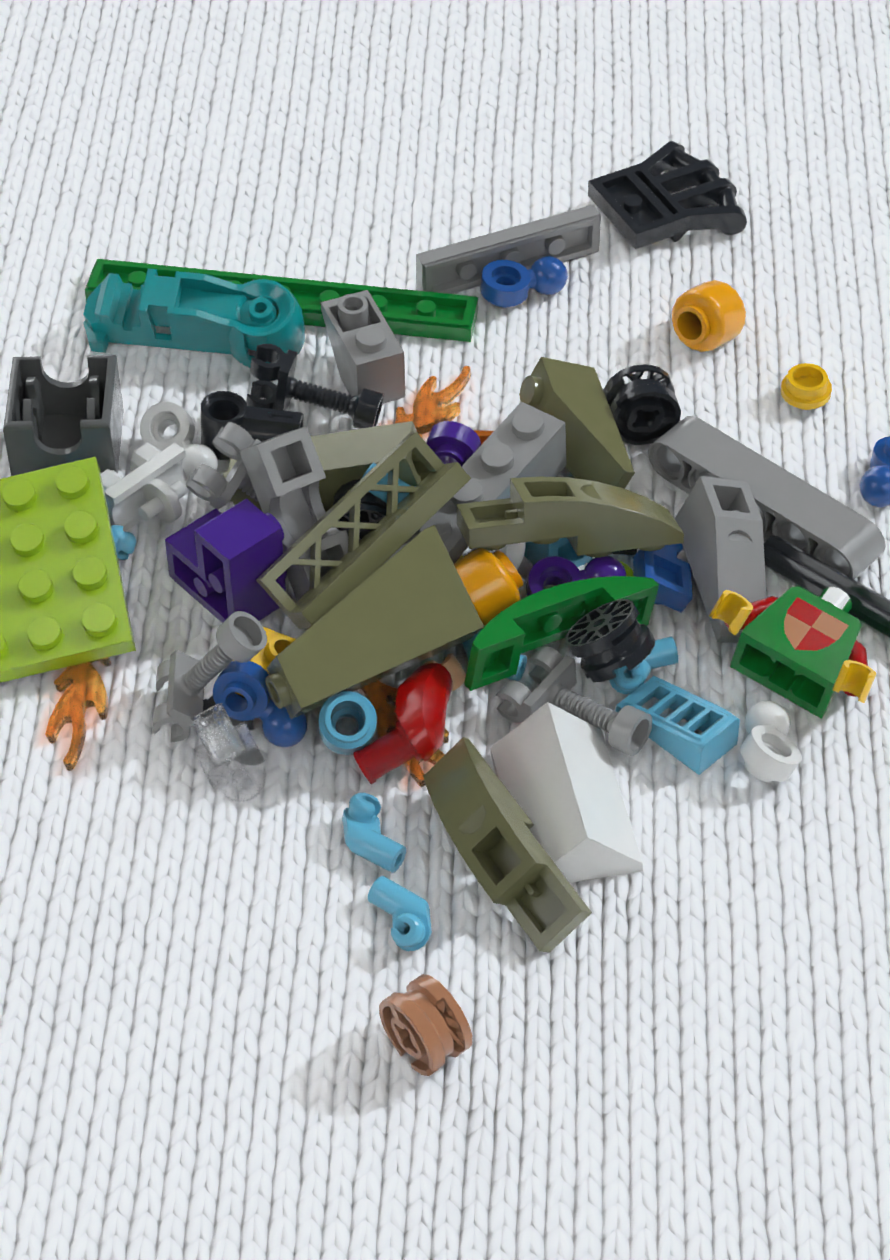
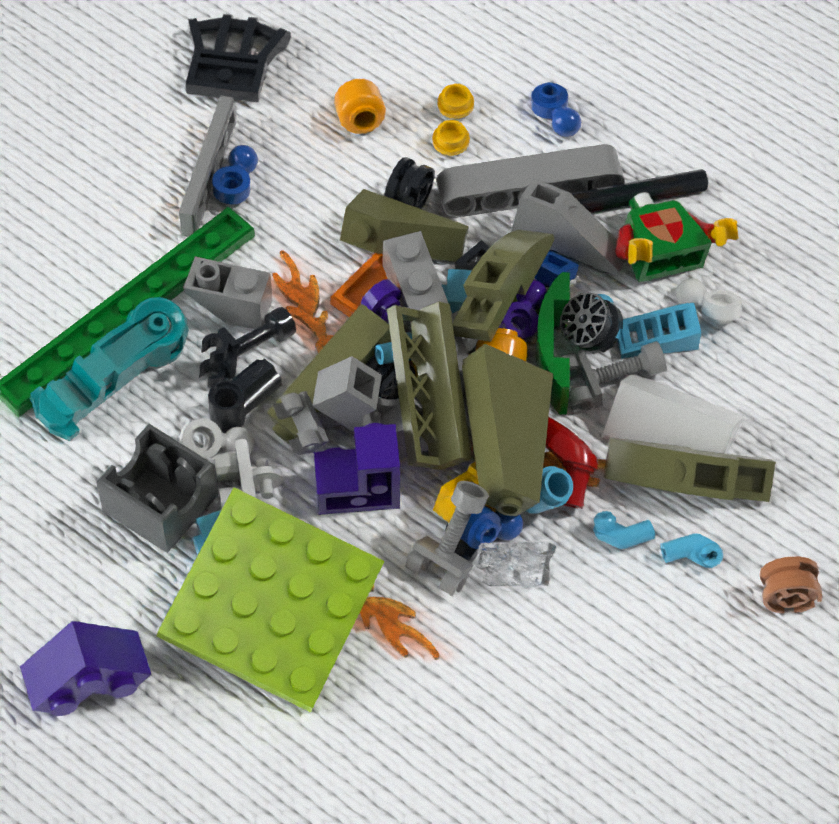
camera: 55 degrees left, 10 degrees up
(753, 409) = (451, 138): none -> yellow plate

